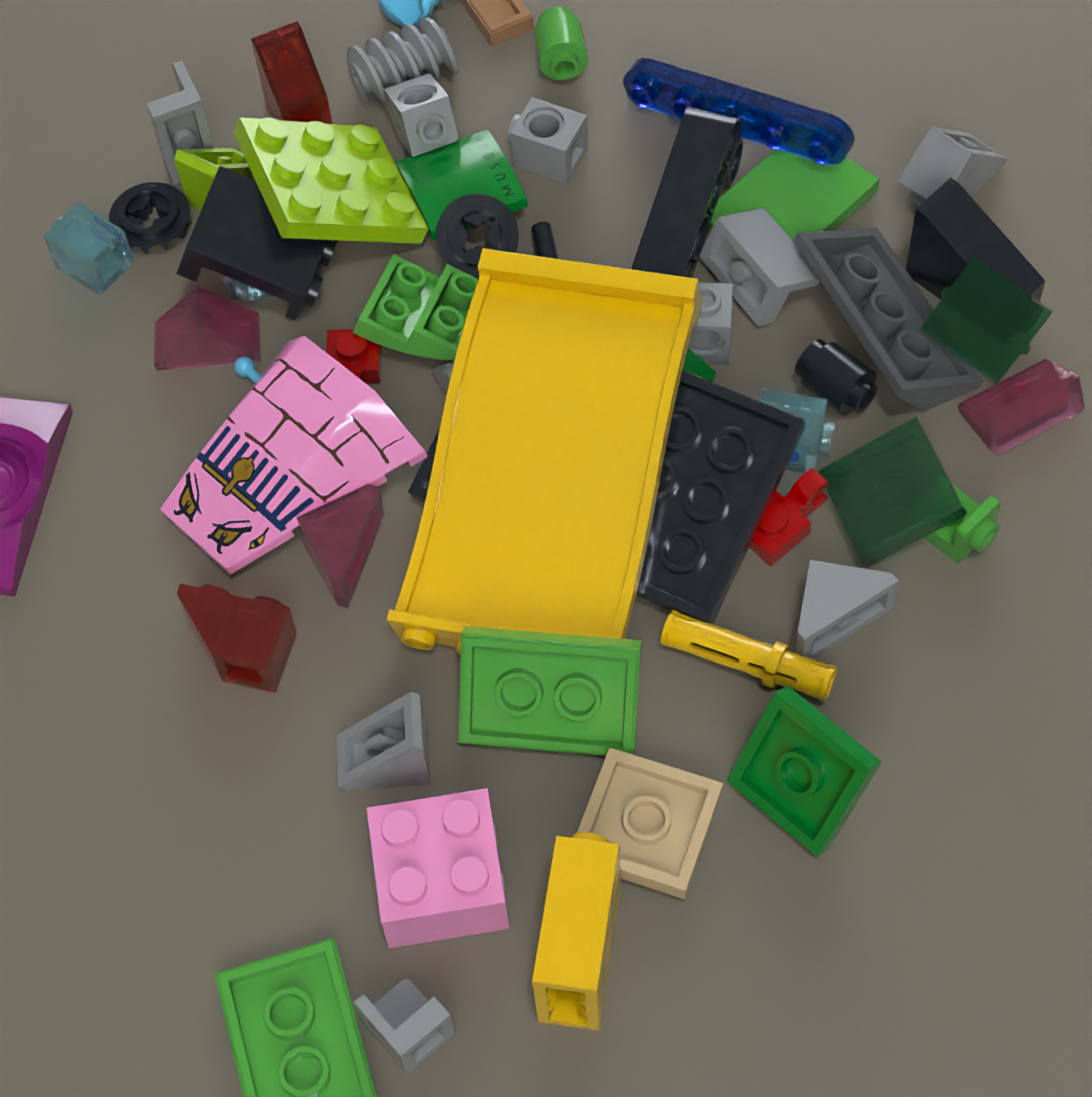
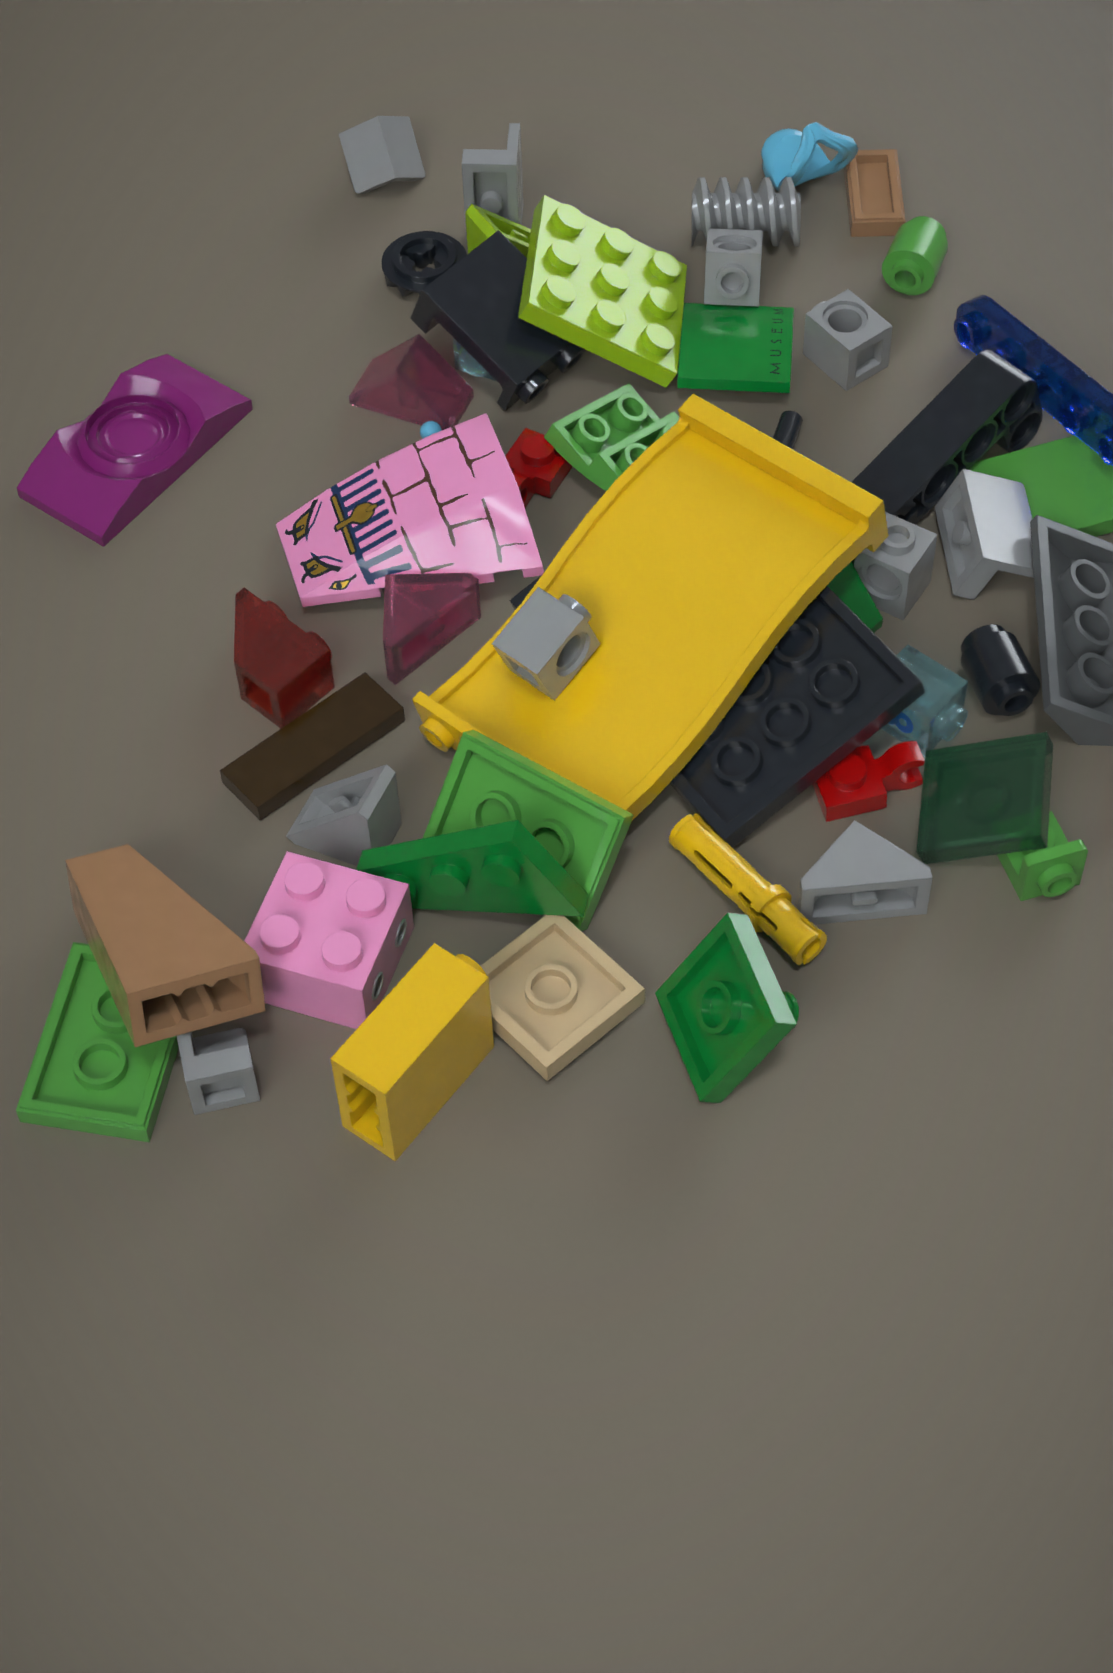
camera: 25 degrees right, 5 degrees down
(54, 131) = (381, 153): none -> light grey panel
(89, 248) = (349, 269): clear light blue brick -> none
(290, 76) = (624, 180): clear red slope -> none
(305, 948) = (160, 949): none -> medium nougat slope
(313, 697) = (312, 745): none -> dark brown tile
(475, 210) = (730, 373): black gear -> none
(477, 518) = (547, 641): none -> light grey brick
(534, 750) = (480, 871): none -> green wing

